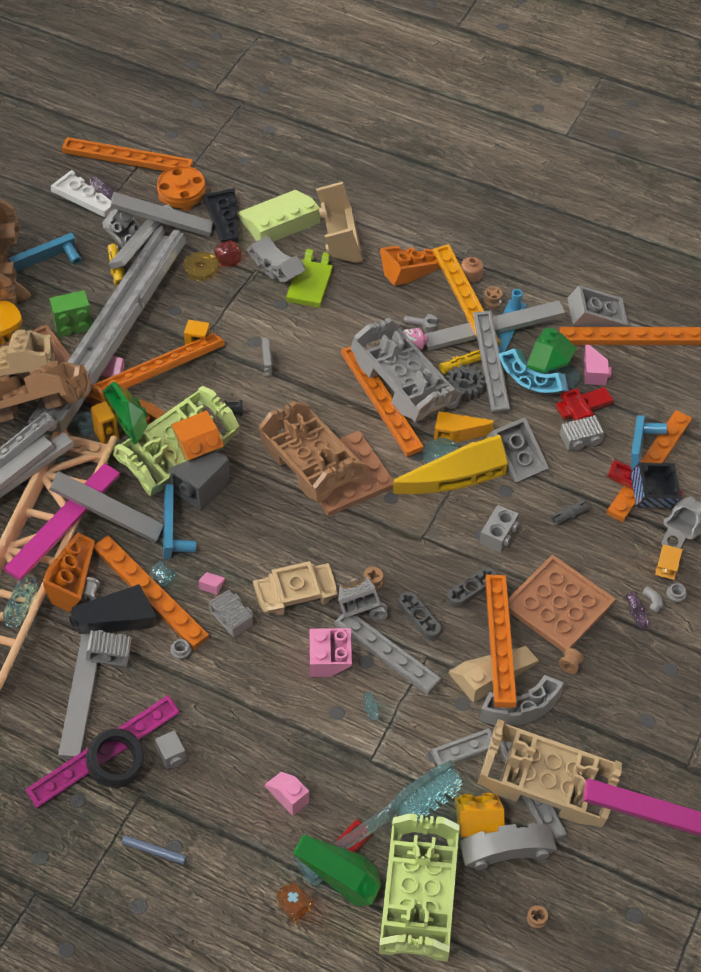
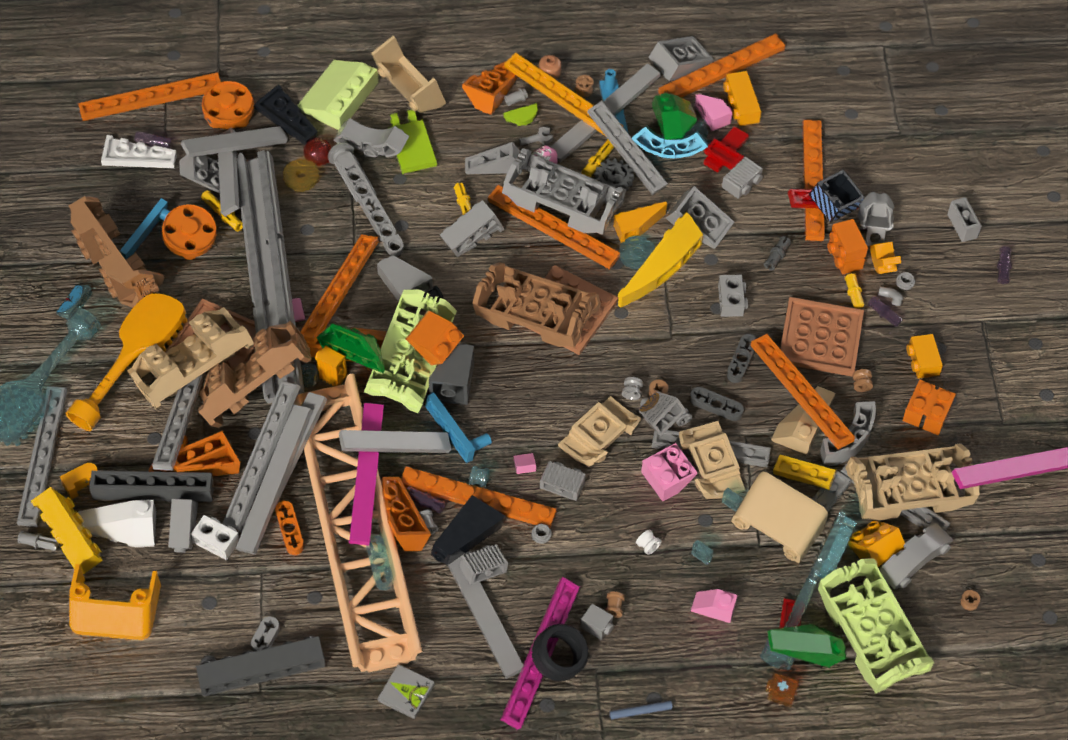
camera: 30 degrees left, 5 degrees up
(71, 313) = (221, 277): bright green brick -> none
(75, 267) = (189, 231): none -> orange piece
(103, 570) = (426, 500): none -> pin
(195, 329) = (346, 239): light orange panel -> none
(197, 743) = (614, 604): none -> medium nougat bush
(222, 381) = (402, 276): none -> light grey slope
(241, 271) = (347, 165): none -> light grey piece
(267, 357) = (427, 235): light grey tile -> none
(268, 704) = (648, 542): none -> white wheel
(307, 367) = (471, 228): none -> light grey wedge
(309, 738) = (702, 552): none -> clear light blue tile
(320, 343) = (462, 198): none -> yellow axle
(351, 565) = (632, 388): none -> light grey wheel
(359, 319) = (492, 161): none -> light grey slope
(376, 661) = (713, 460): none -> tan piece
(402, 741) = (782, 515): none -> tan windscreen
(421, 298) = (521, 116): none -> lime tile
(427, 281) = (515, 97): none -> light grey pin
(456, 715) = (804, 472): none -> yellow plate
(620, 578) = (854, 291): none -> yellow axle
(622, 716) = (929, 402): none -> orange piece
(629, 367) = (742, 98): none -> light orange brick
(636, 534) = (847, 246): none -> orange piece
(640, 430) = (789, 151): dark azure piece -> none
(647, 668) = (924, 356): none -> light orange brick

